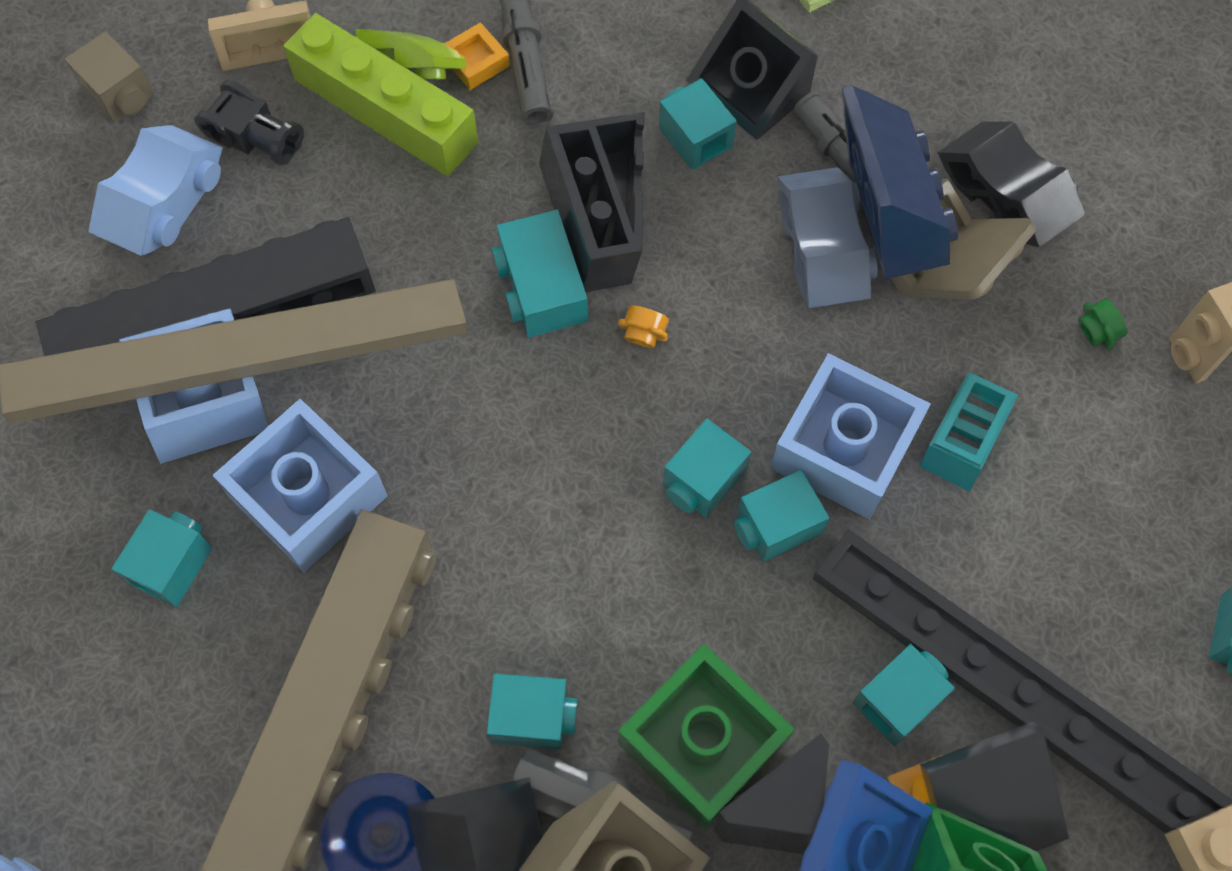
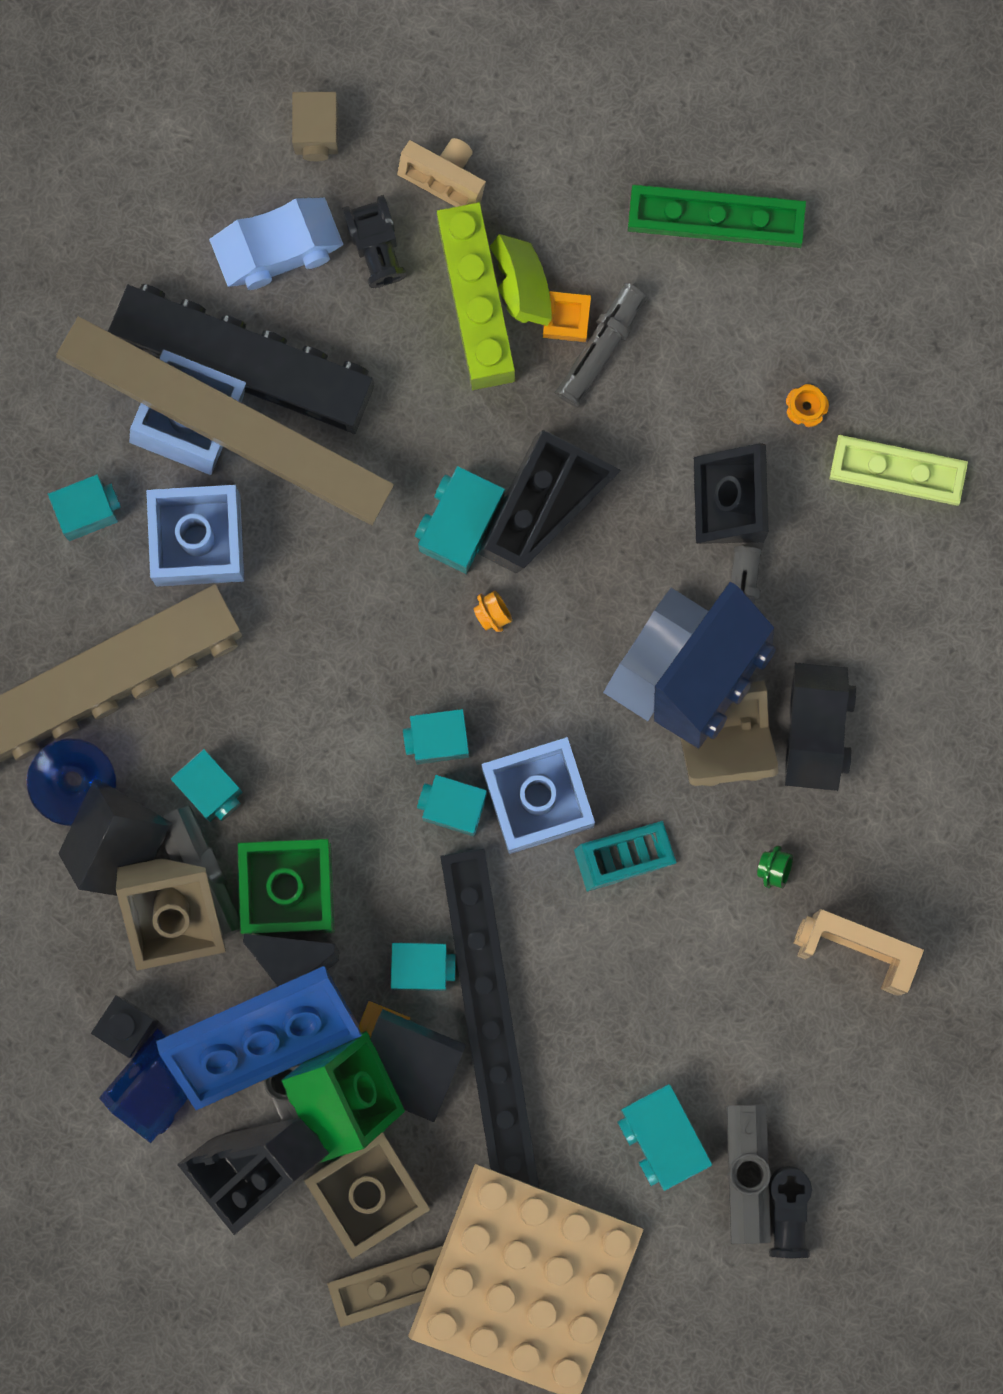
camera: 45 degrees right, 15 degrees up
(696, 123) = (659, 499): teal brick -> none

